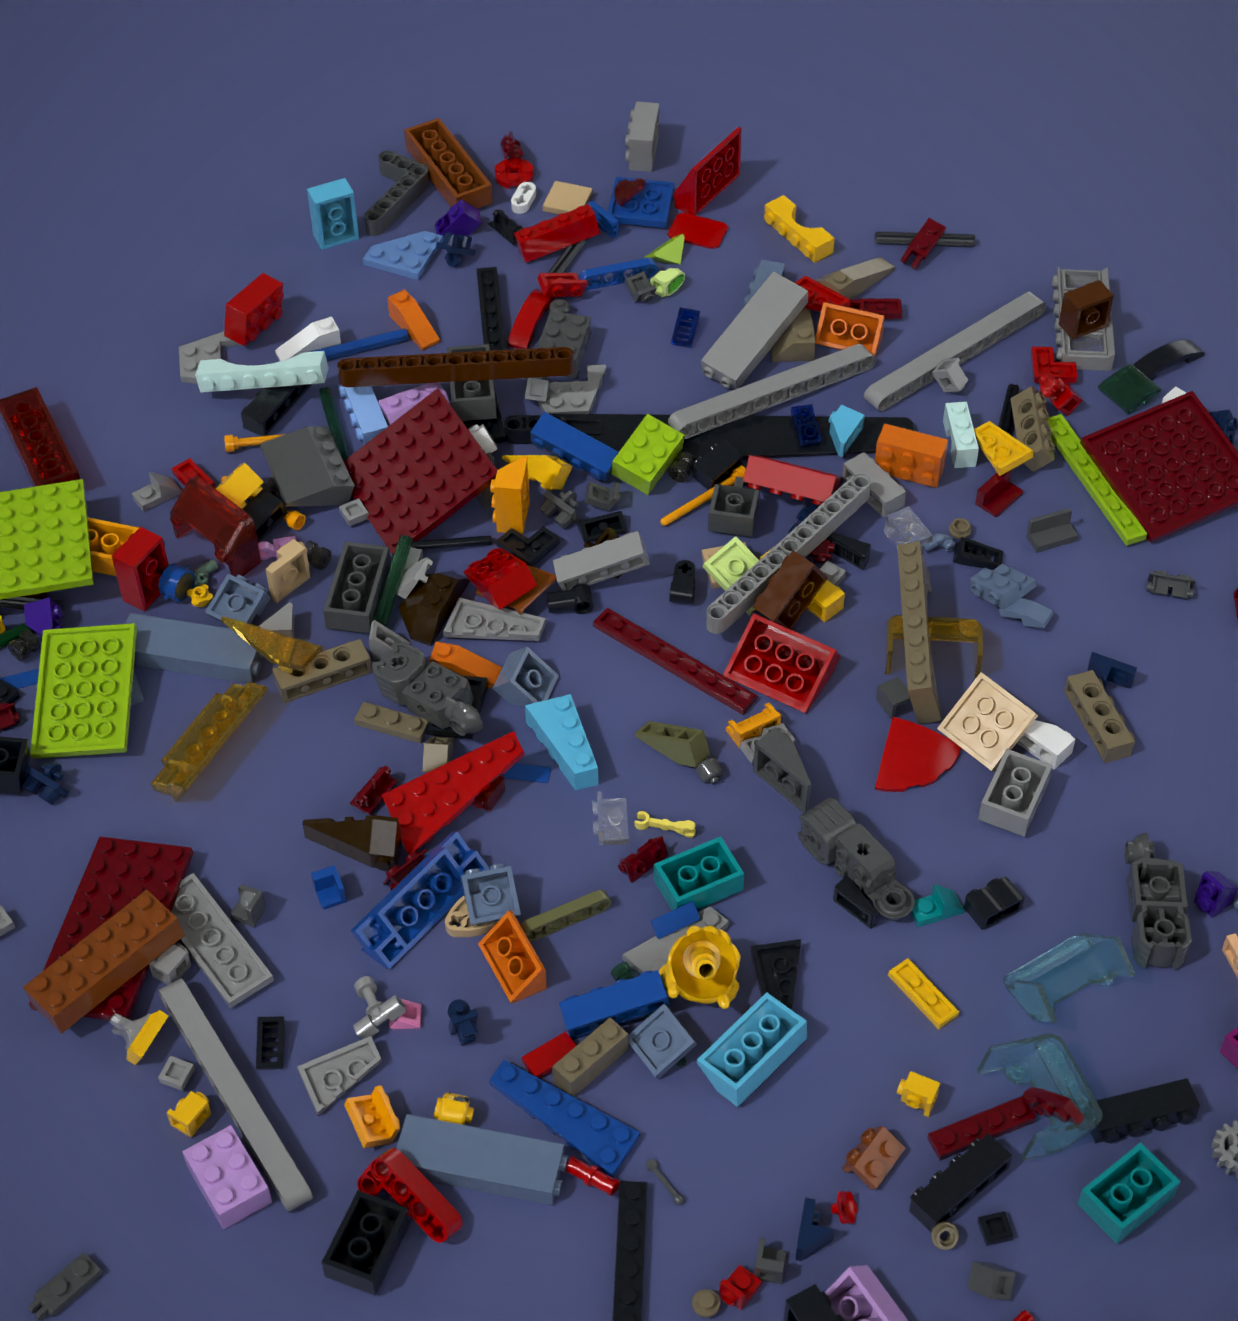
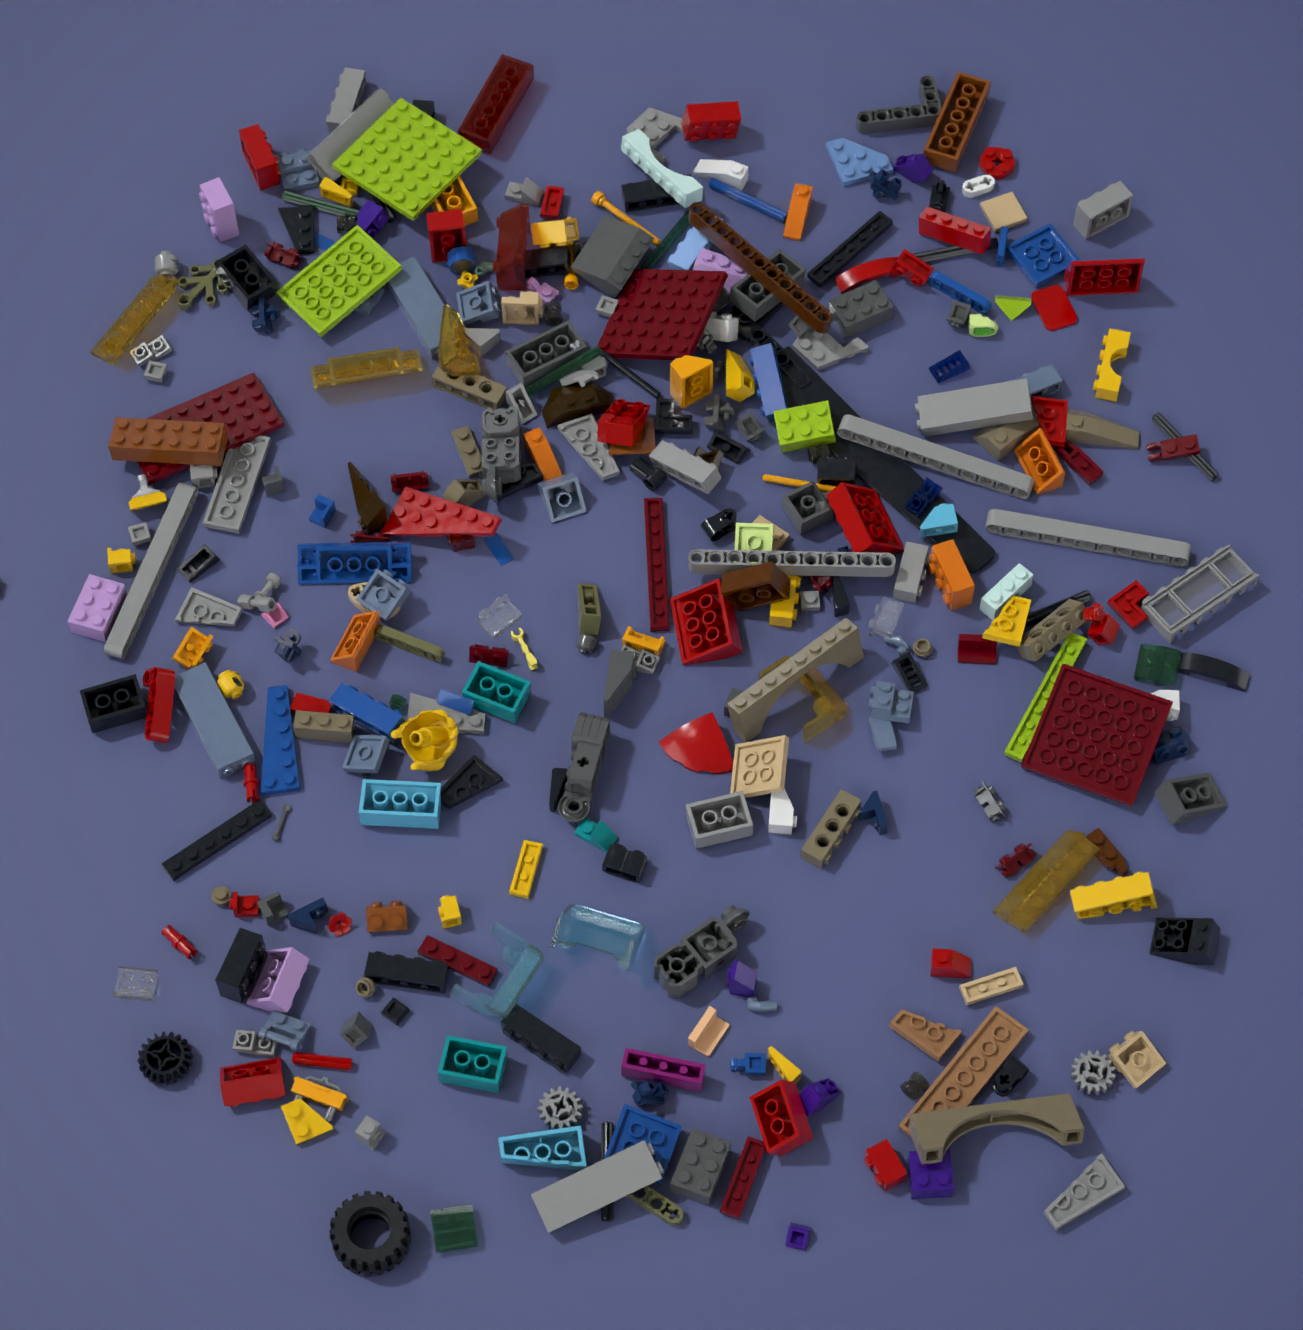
camera: 50 degrees right, 10 degrees up
(333, 213) = (836, 95): medium azure brick -> none
(511, 147) = (1015, 143): dark red hinge -> none
(560, 306) = (893, 284): dark grey piece -> none
(563, 735) = (536, 549): medium azure wedge -> none
(627, 190) = (1039, 239): clear red plate -> none
(950, 375) = (1055, 549): light grey brick -> none
(1051, 531) = (970, 702): dark grey panel -> none
(1053, 1105) = (491, 985): dark red hinge -> none
(1085, 309) = (1186, 587): reddish brown brick -> none

